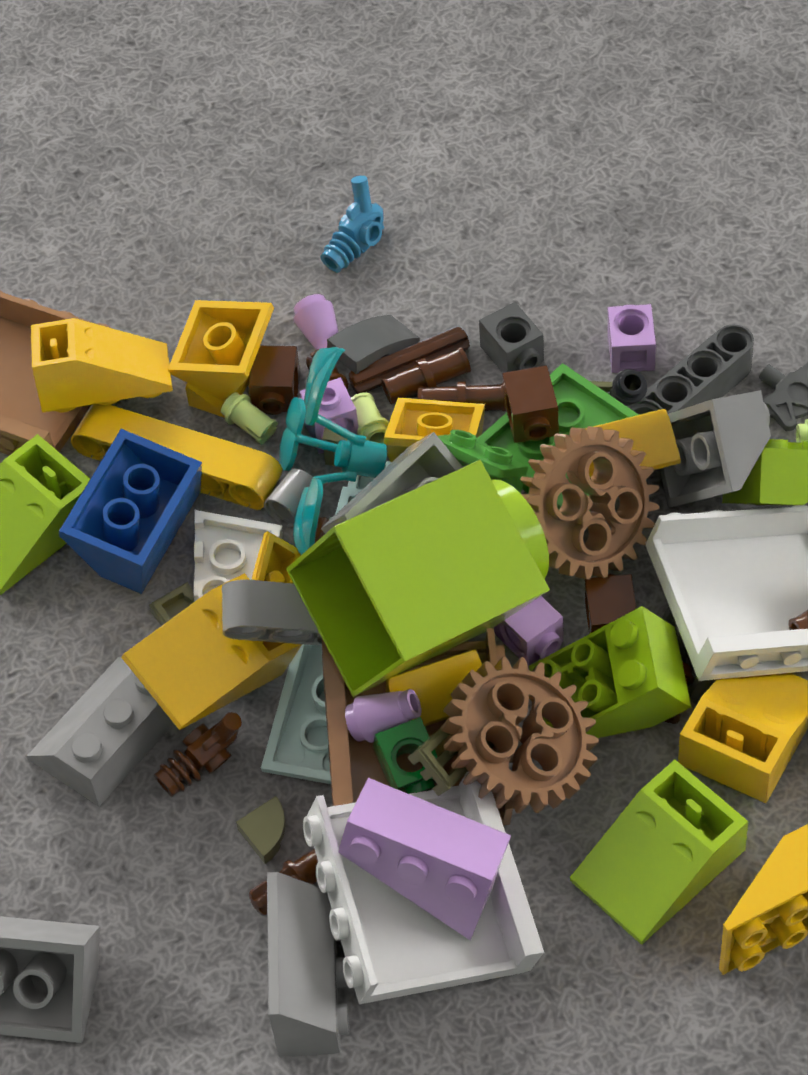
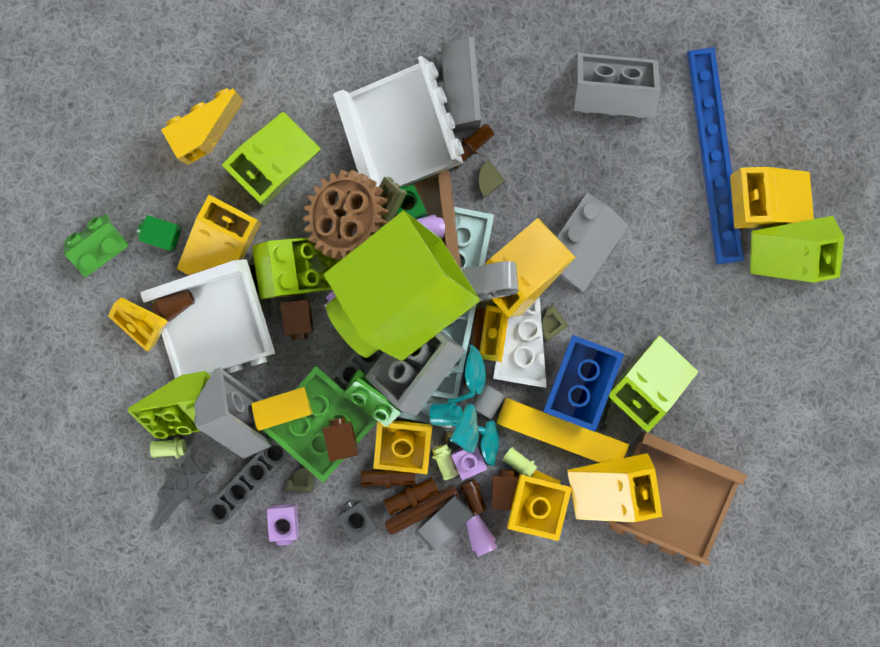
camera: 170 degrees right, 35 degrees up
(204, 749) = (522, 220): reddish brown piece -> none
(357, 228) = (459, 617): dark azure piece -> none
(425, 853) = (394, 129): lavender wedge -> none
(614, 475) = (290, 381): medium nougat gear -> none
(628, 387) = (289, 472): black pin -> none

